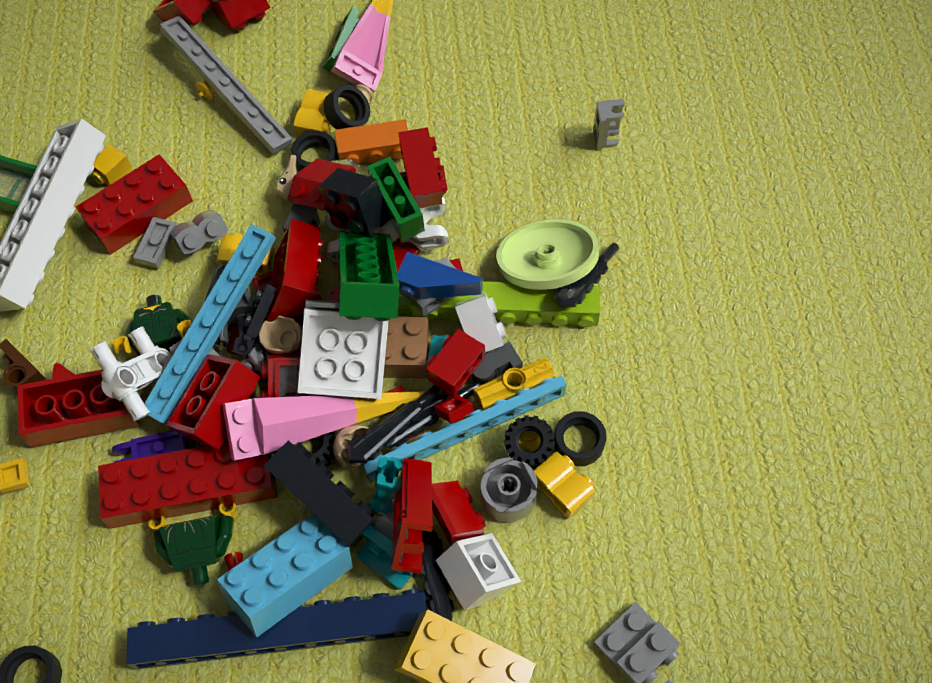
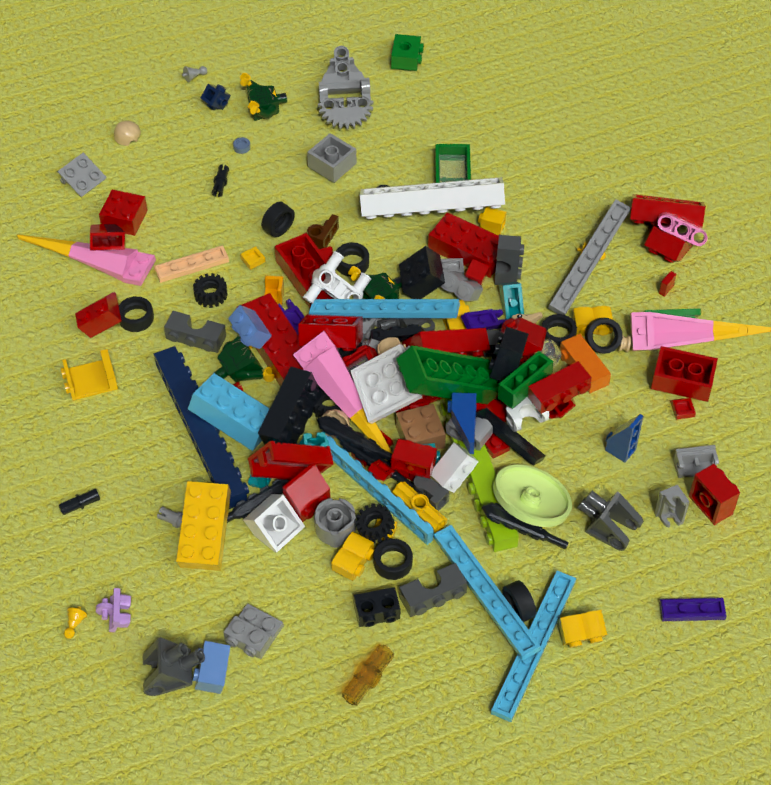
camera: 70 degrees right, 10 degrees down
(31, 539) = (210, 298): none -> black tyre
(73, 334) = (353, 249): none -> black tyre
(84, 461) = (275, 286): none -> light orange panel
(94, 616) = (209, 337): none -> dark grey arch
(155, 507) = (249, 327): none -> medium blue brick
(160, 267) = (421, 273): none -> black brick
(184, 207) = (477, 271): none -> red panel
(192, 152) = (509, 259): none -> dark grey arch
(245, 185) = (511, 299): none -> teal slope
(269, 219) = (483, 319): none -> dark purple hinge
(296, 27) = (667, 283): none -> red tile
(432, 53) = (684, 373): none -> red brick
(462, 246) = (512, 438): none -> black tile
(470, 75) = (683, 408): none -> red tile
(503, 134) = (624, 439): none -> blue slope
(548, 87) = (694, 459): none -> light grey hinge
(597, 194) = (602, 514): none -> dark grey piece
(605, 79) = (714, 494): none -> red brick
(638, 384) = (420, 599): none -> dark grey arch
(642, 477) = (375, 602): none -> black brick
(661, 346) = (488, 593): none -> medium azure plate
(688, 315) = (520, 600): none -> black tyre
(730, 157) = (692, 609): none -> dark purple tile
(735, 264) = (582, 627): none -> yellow brick
(739, 517) = (367, 674): none -> clear yellow piece
(743, 322) = (541, 629): none -> medium azure plate

